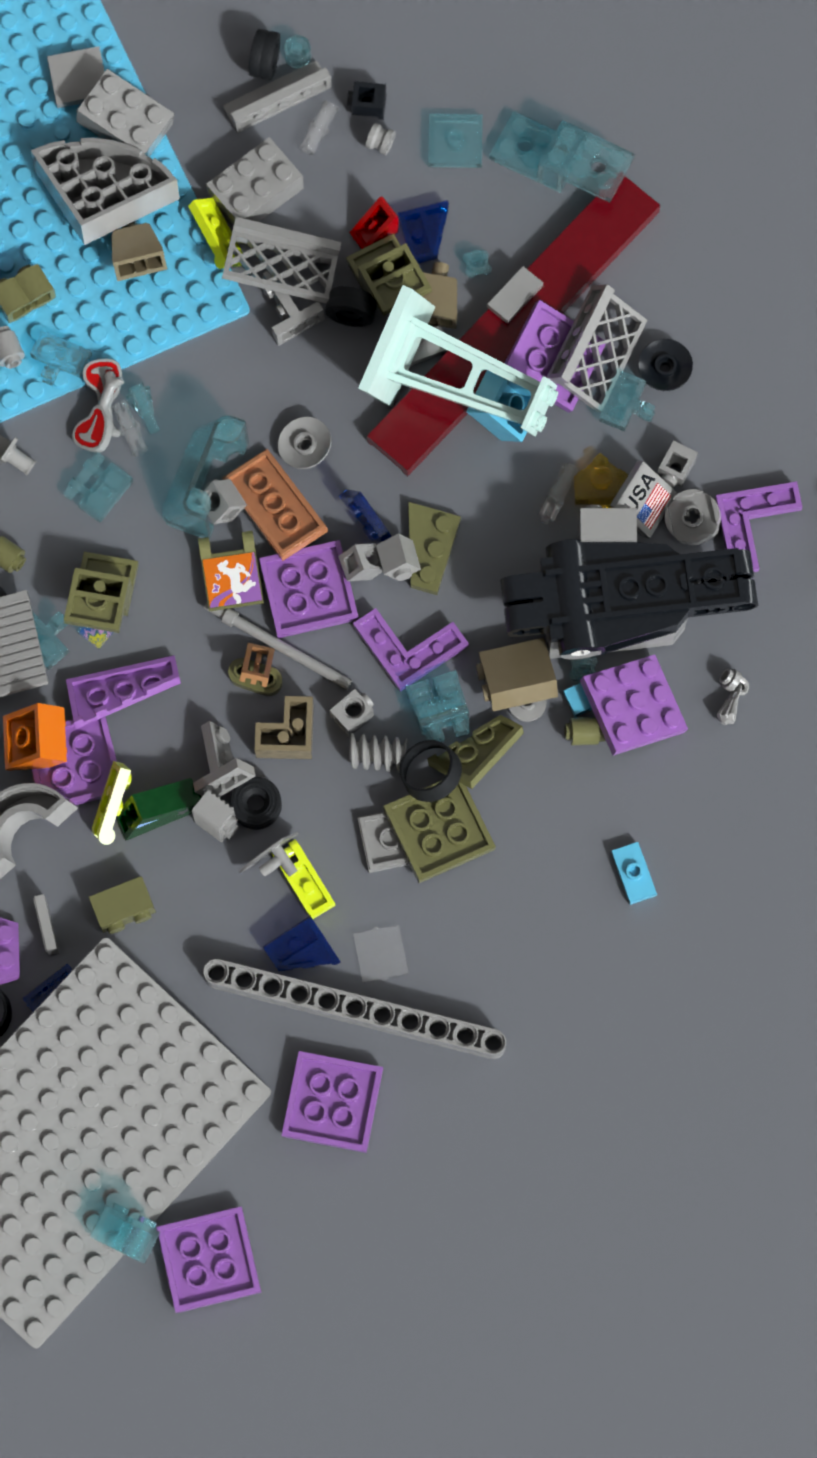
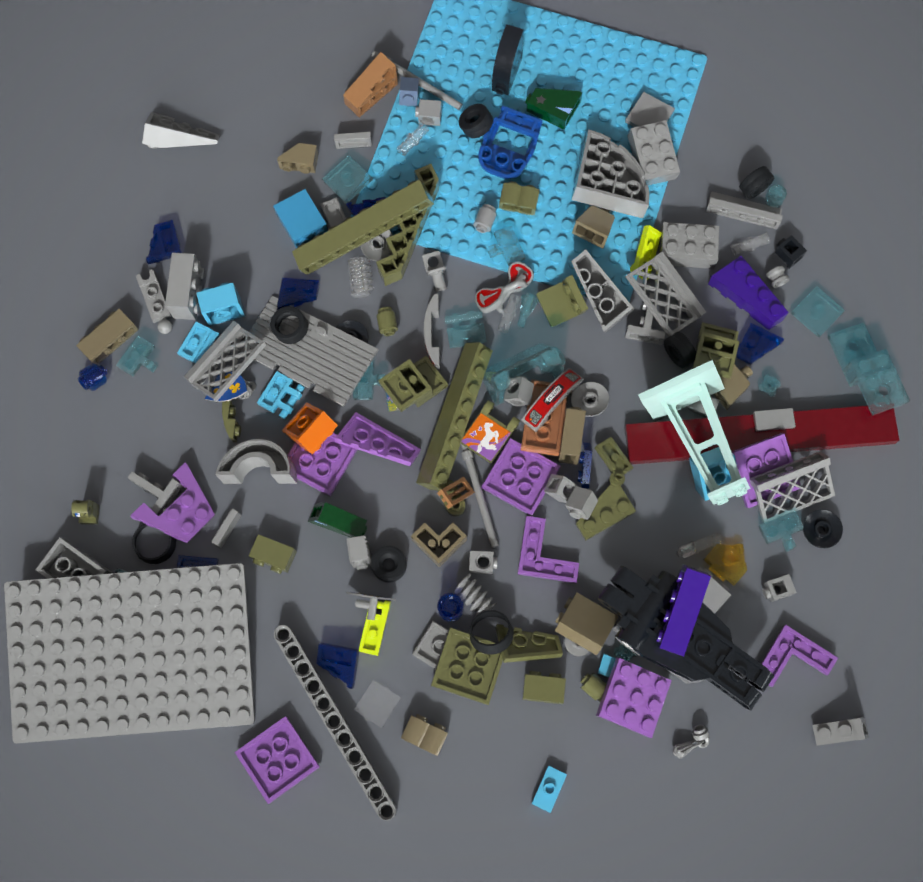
camera: 45 degrees right, 0 degrees up
(87, 543) = (431, 312): none -> light grey slope
(111, 802) = (315, 496): plate -> none
(124, 1233) = (106, 729): clear light blue brick -> none
(176, 364) = (562, 301): none -> olive bracket
(178, 587) = (454, 416): none -> olive brick
(208, 1259) = (137, 782): medium lavender plate -> none
(216, 318) = (602, 293): none -> light grey wedge
(225, 771) = (385, 533): light grey bracket -> none
(264, 478) = (551, 398): none -> slope
(324, 496) = (572, 436): none -> dark tan brick
(359, 181) = (749, 293): none -> dark purple wedge
(364, 786) = (450, 607): none -> clear blue wheel
(375, 224) = (734, 318): red slope -> none
(390, 484) = (615, 461): none -> olive hinge
(441, 711) = (527, 604): clear light blue hips -> none
(459, 936) = (424, 735): none -> dark tan brick
(536, 778) = (544, 688): none -> olive brick
(603, 562) = (684, 610): none -> dark purple wedge
(648, 494) = (745, 590): light grey tile -> none
(680, 508) = (763, 636): light grey plate -> none

